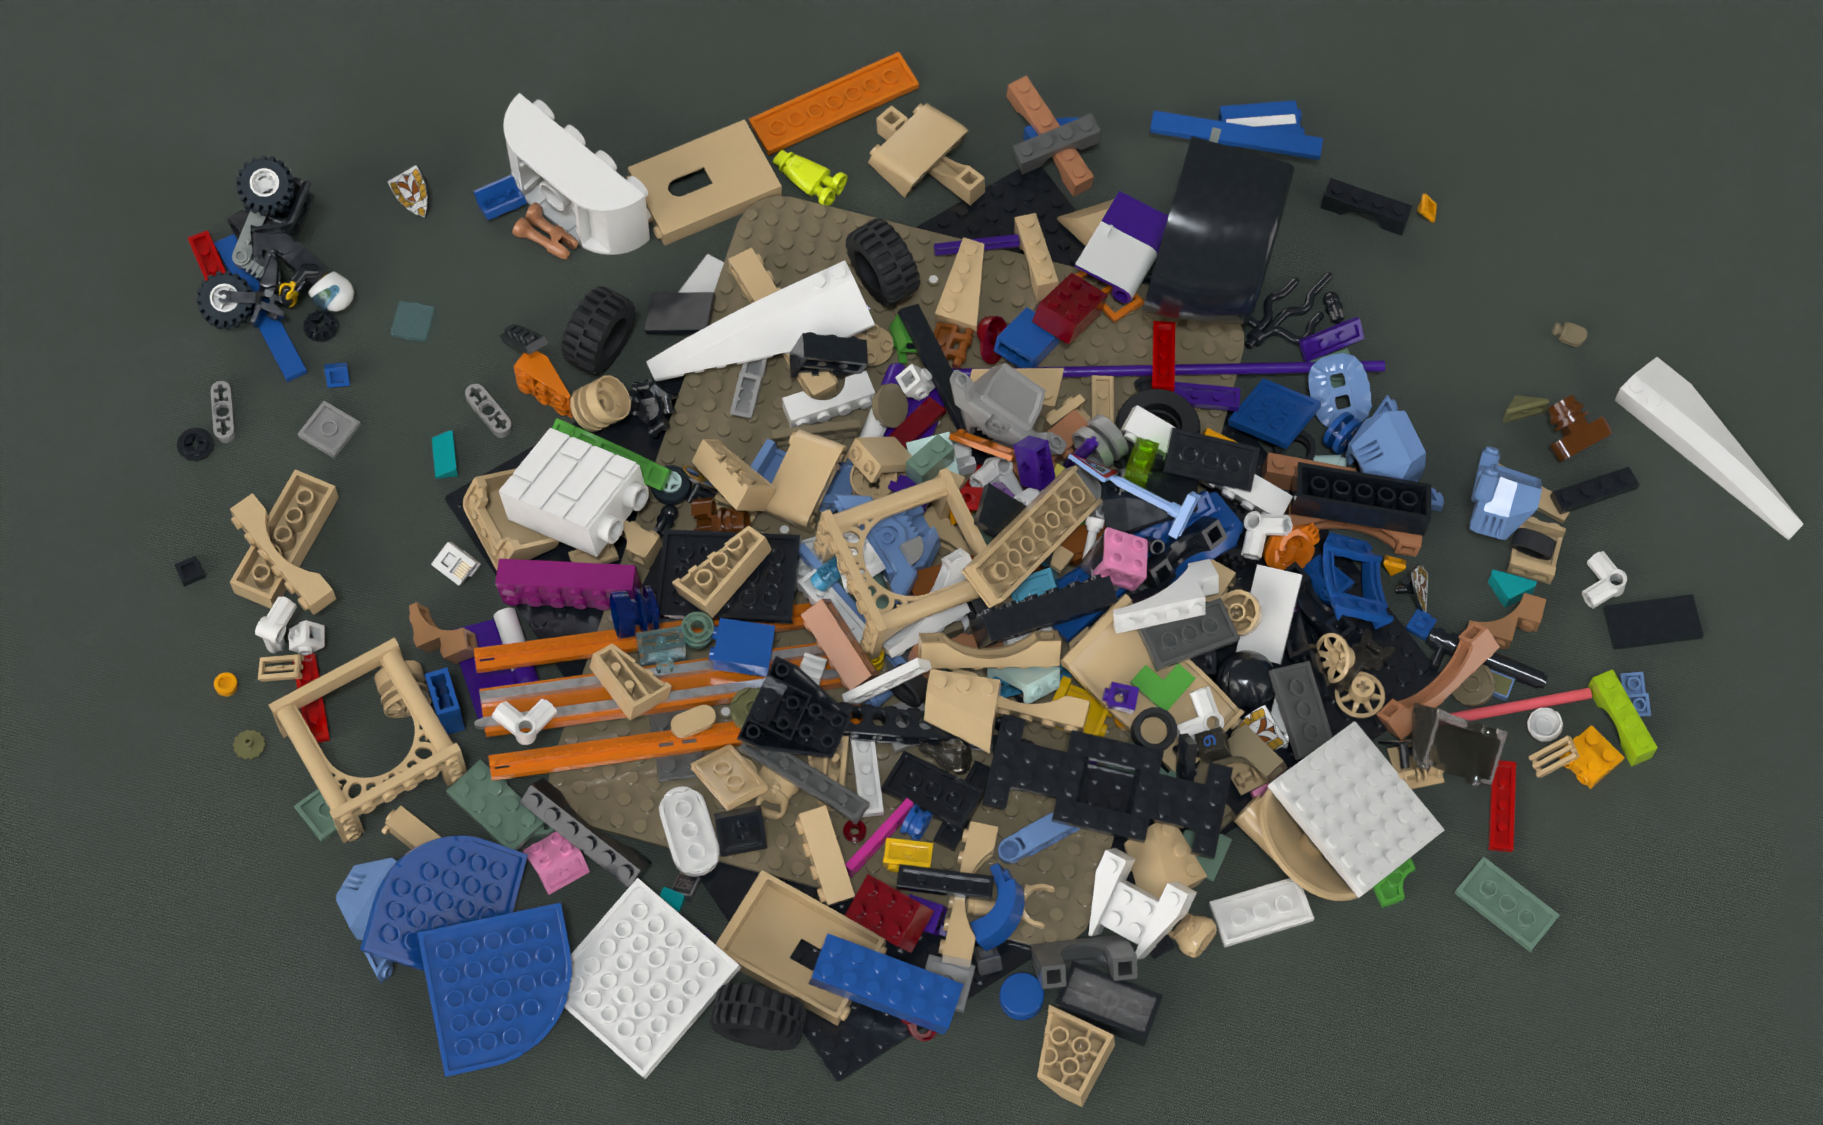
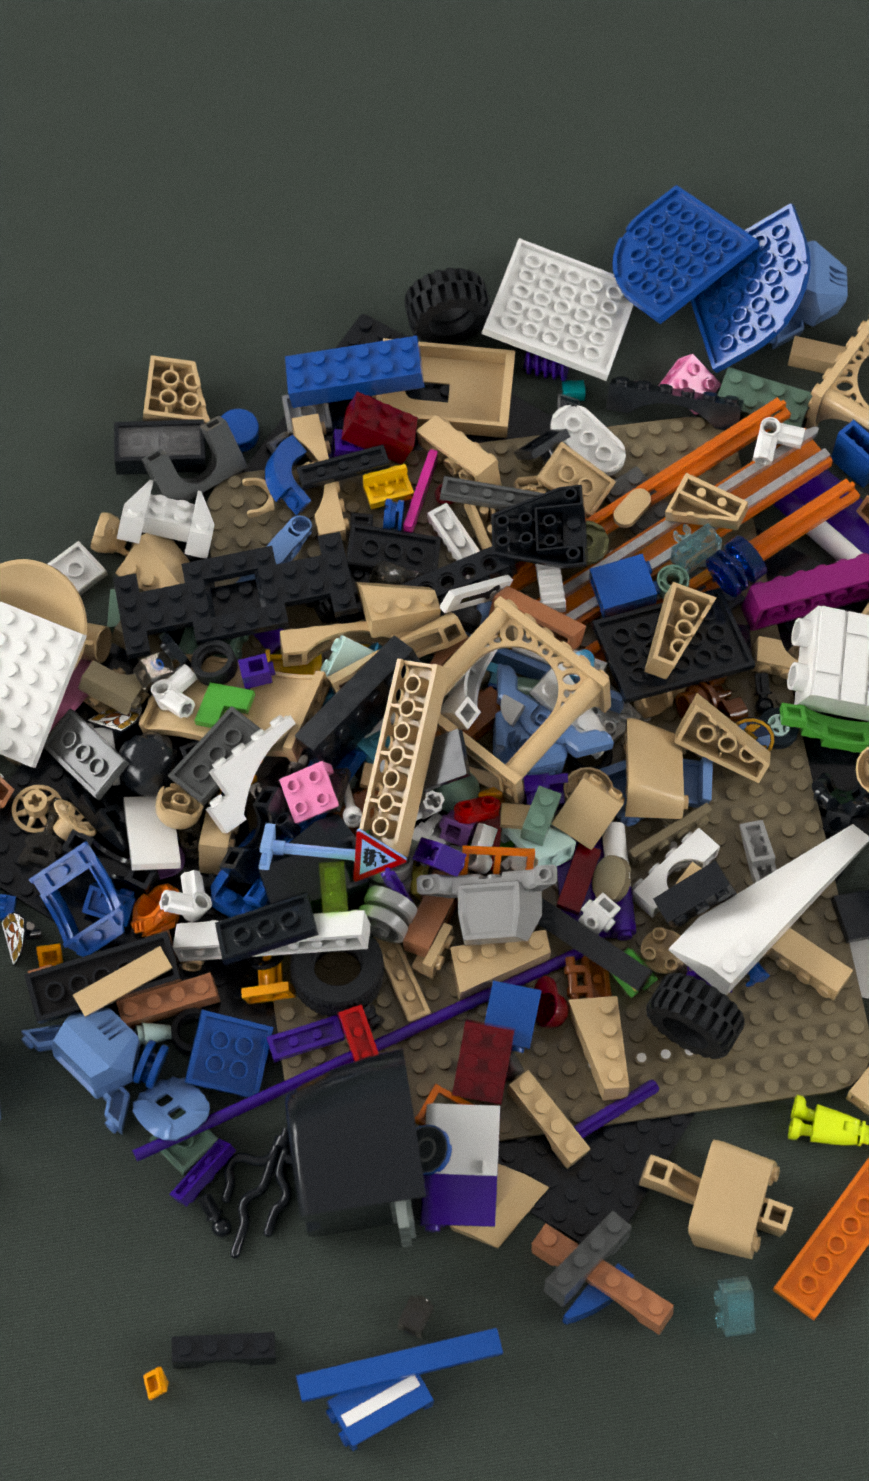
camera: 155 degrees right, 0 degrees up
(957, 77) = (735, 1306): none -> clear light blue brick
(1143, 258) = (433, 1148): none -> black tile
(1349, 474) = (122, 981): none -> tan tile

